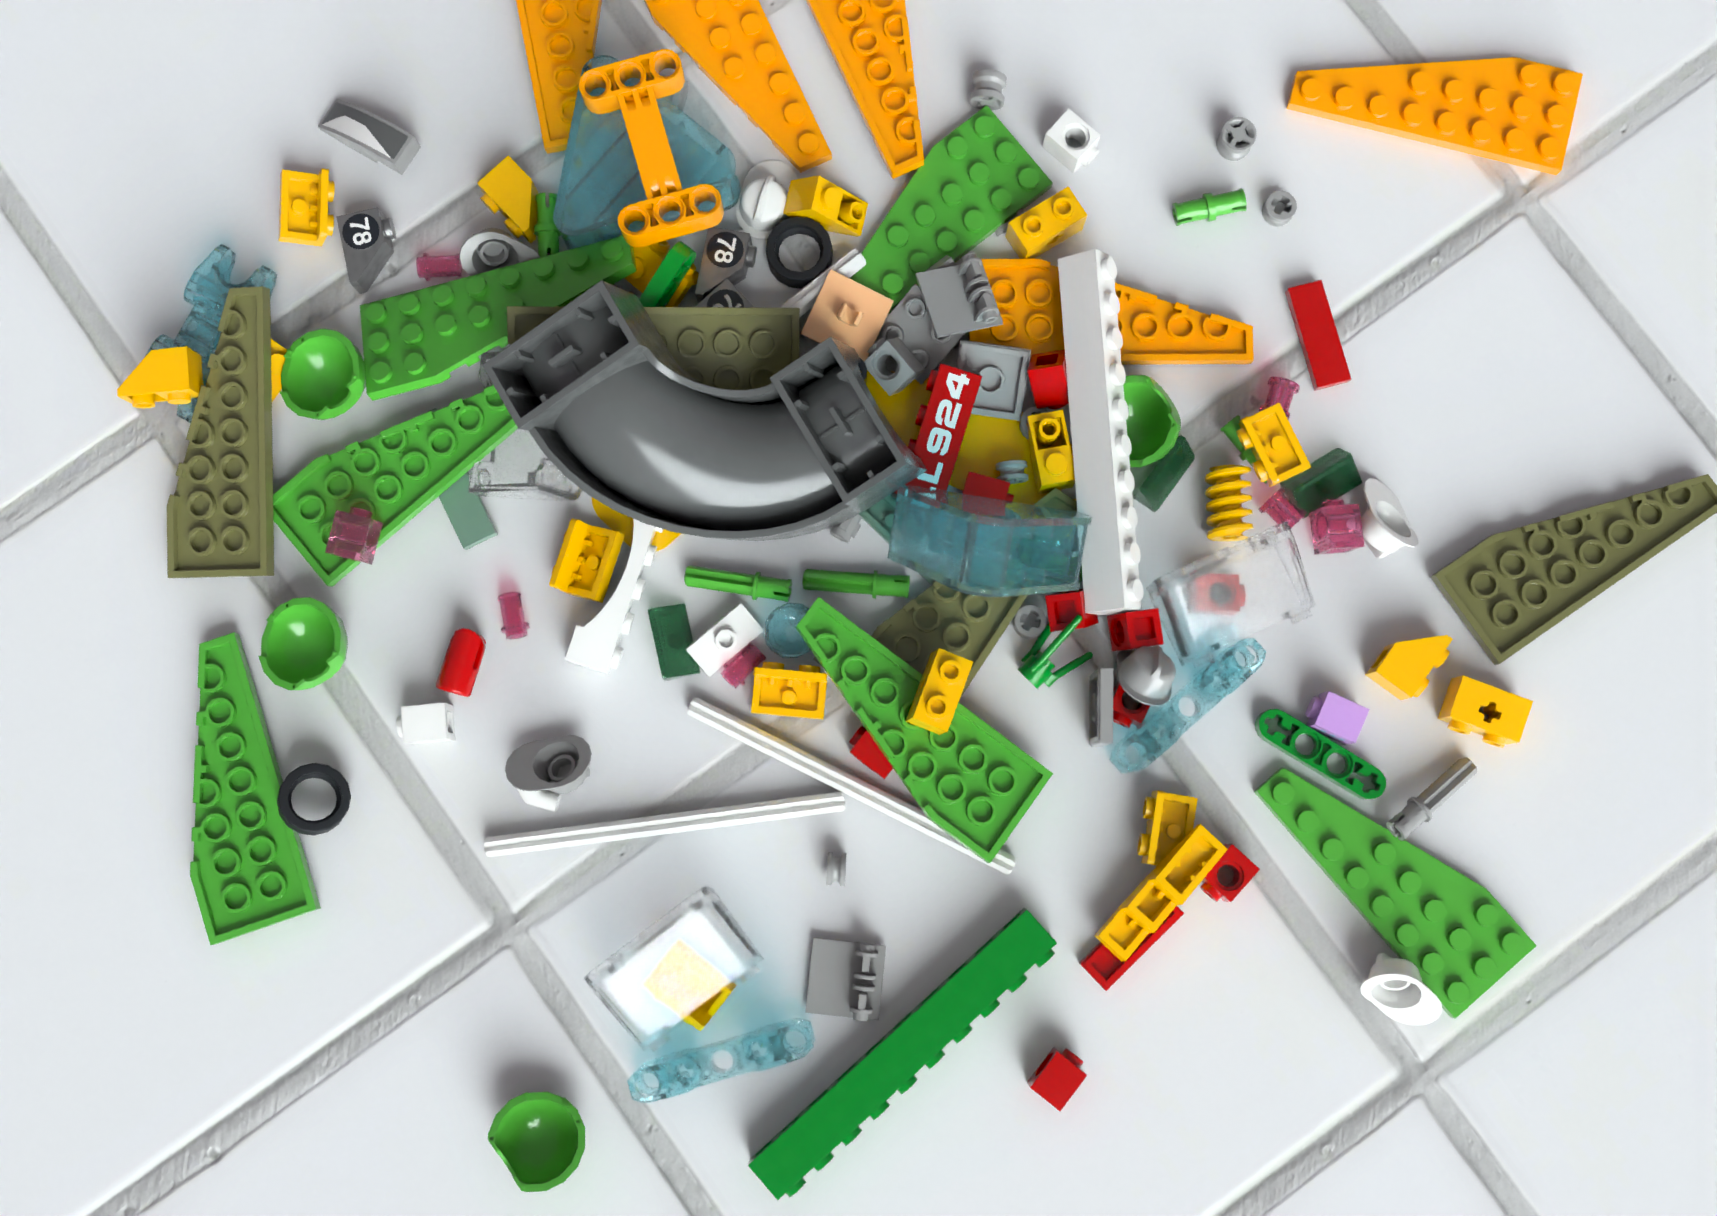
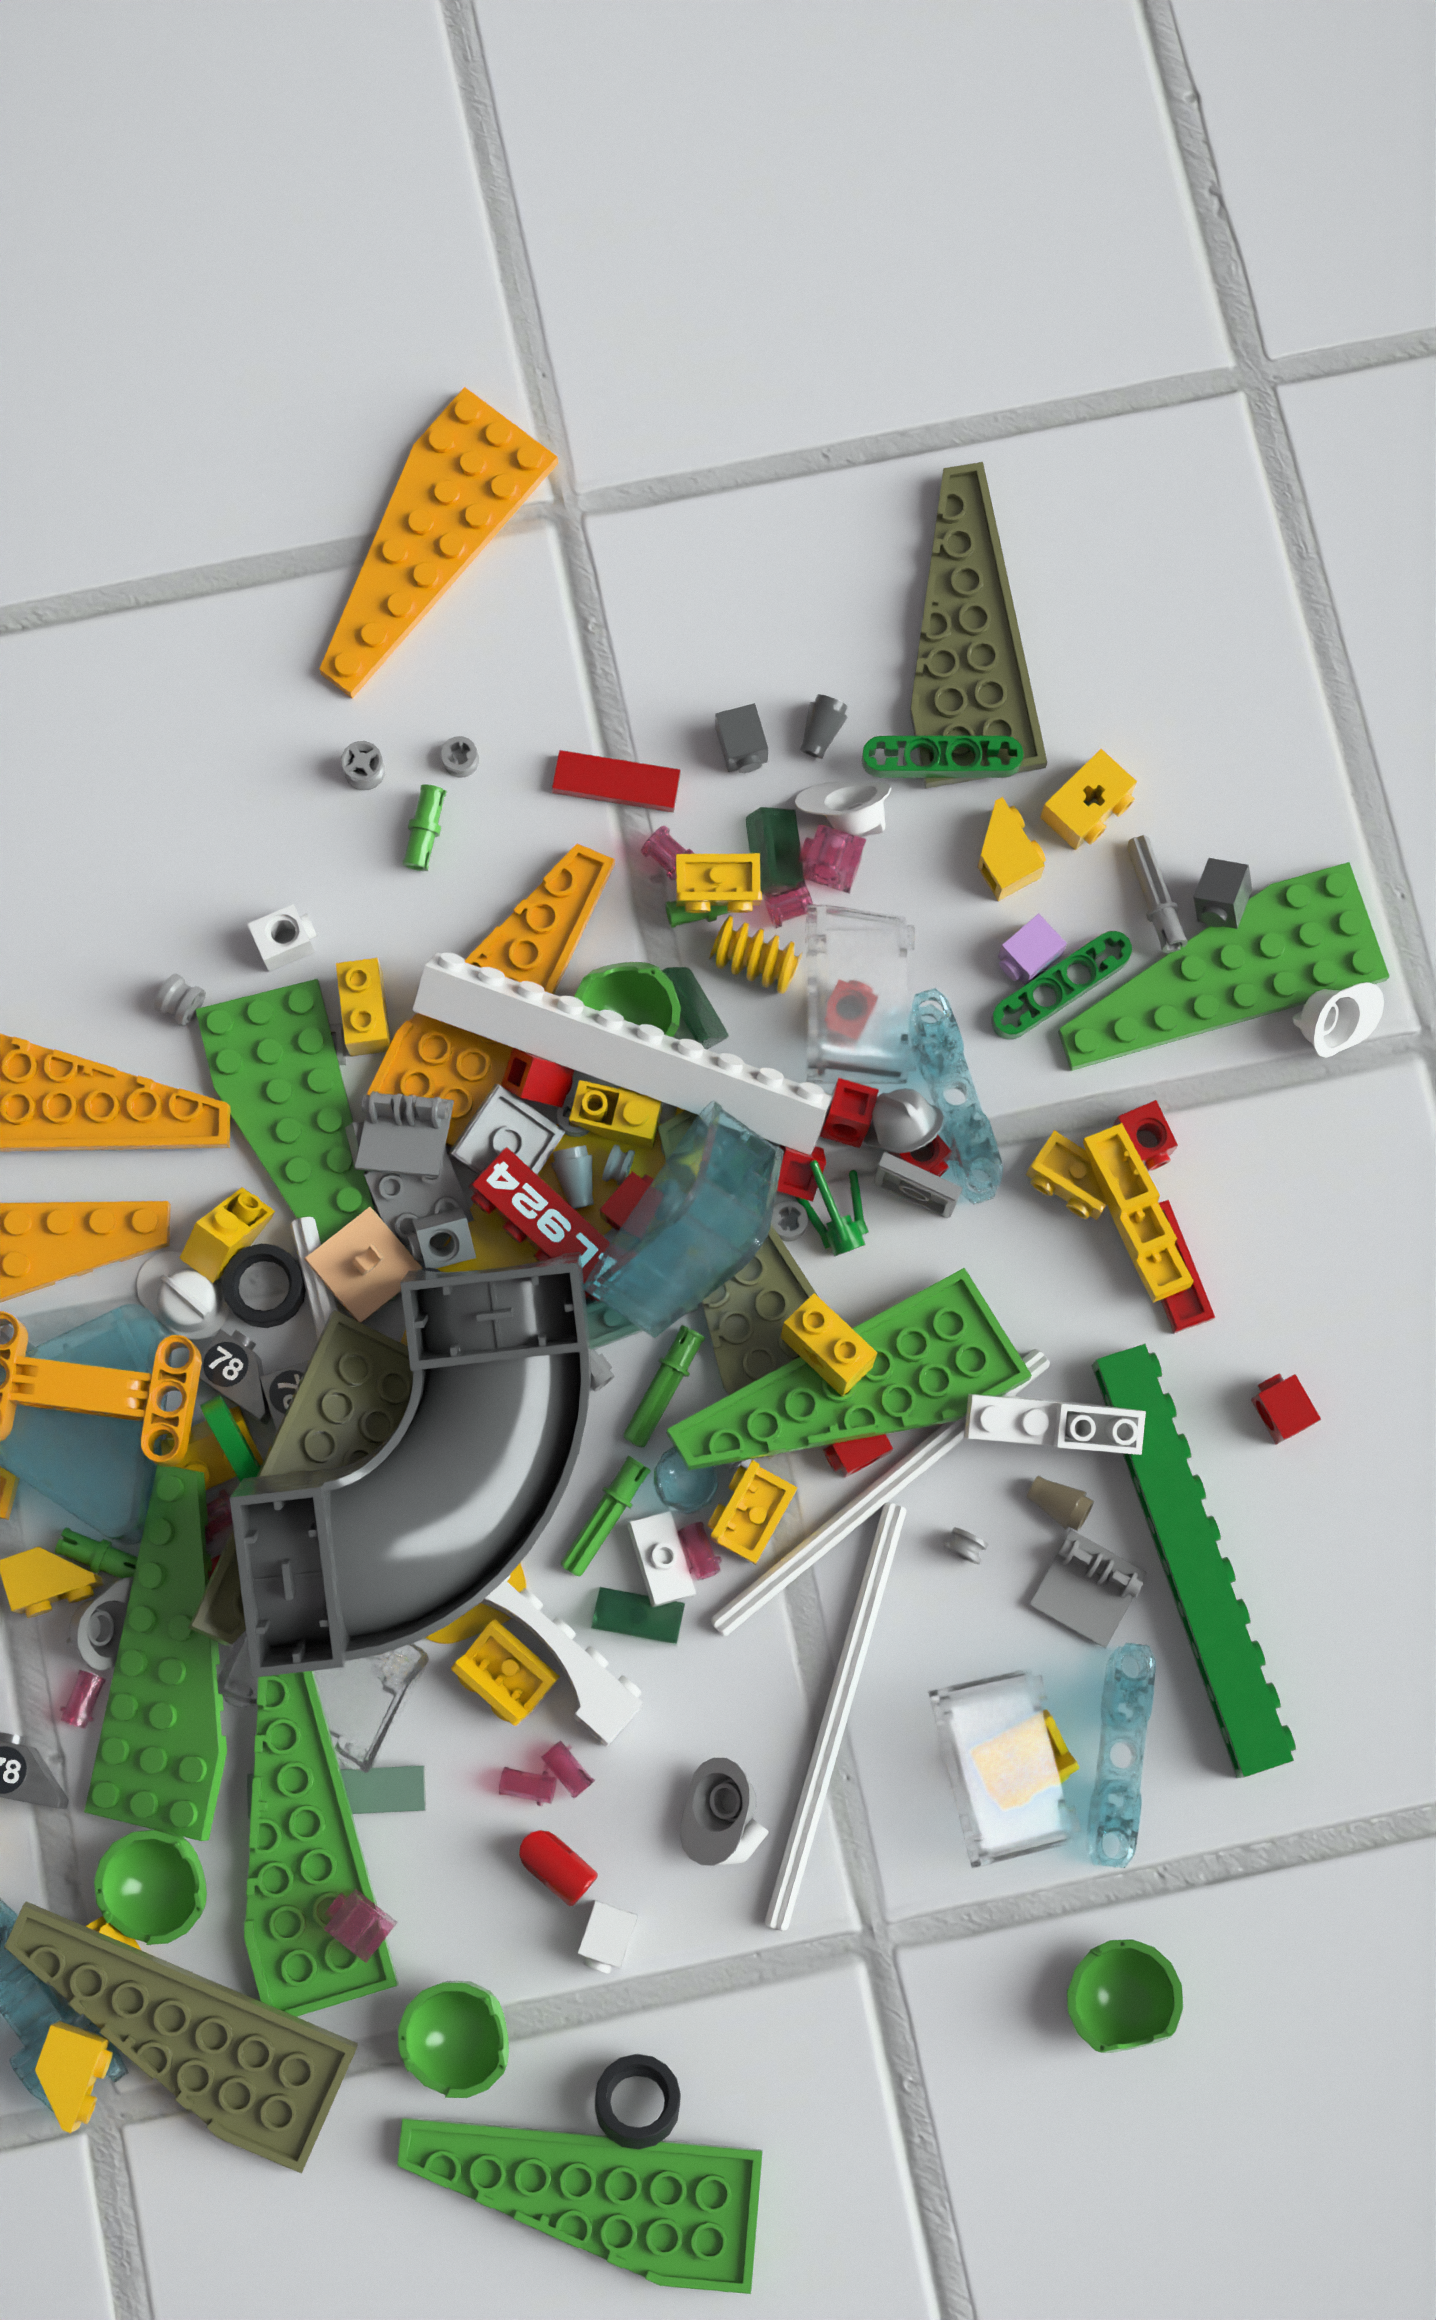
camera: 70 degrees left, 5 degrees down
(537, 639) = (567, 1769): none -> clear pink pin
(902, 931) = (1062, 1503): none -> dark tan cone
(959, 898) = (1055, 1423): none -> white slope
(989, 442) = (574, 1174): none -> light grey cone
(1400, 414) = (741, 738): none -> dark grey brick
(1443, 473) = (822, 725): none -> dark grey cone
(1459, 852) = (1222, 893): none -> dark grey brick
(1468, 574) = (942, 764): none -> green beam

